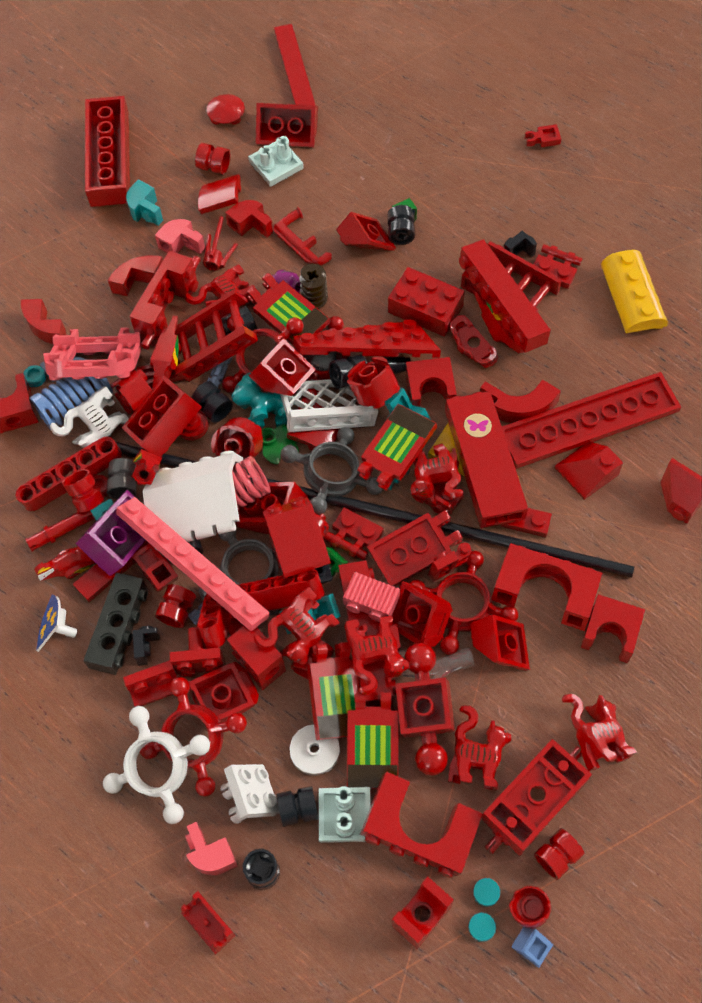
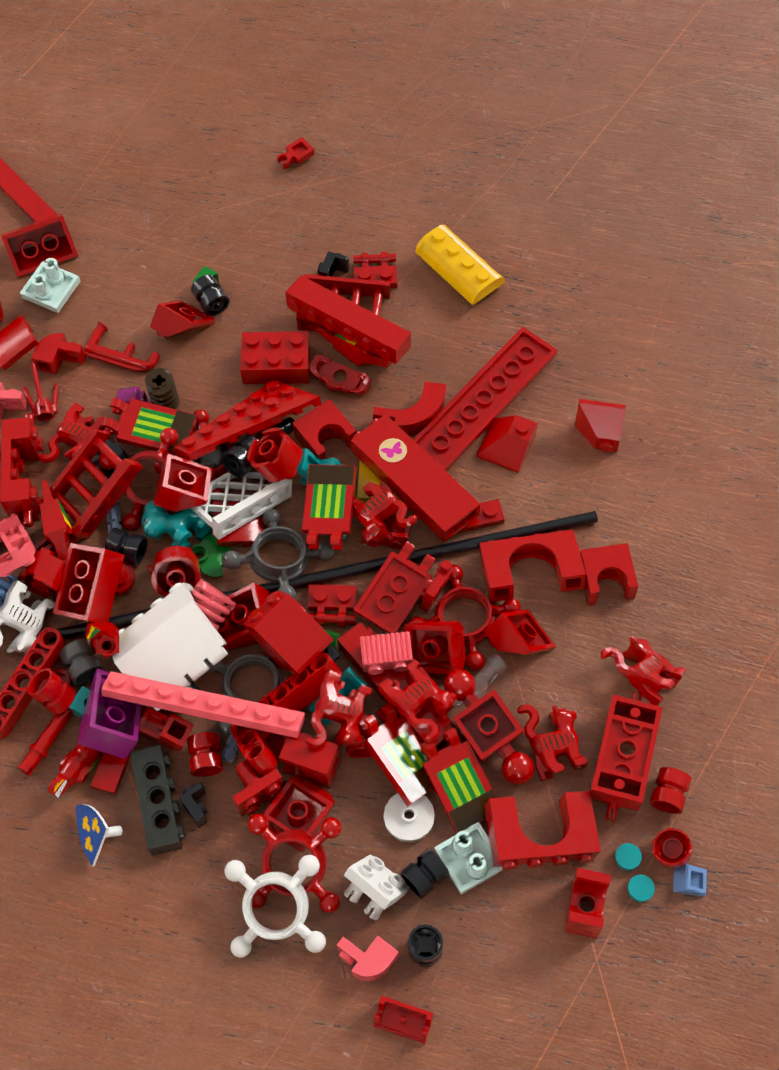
camera: 30 degrees left, 0 degrees up
(150, 683) = (225, 837): red bracket -> none

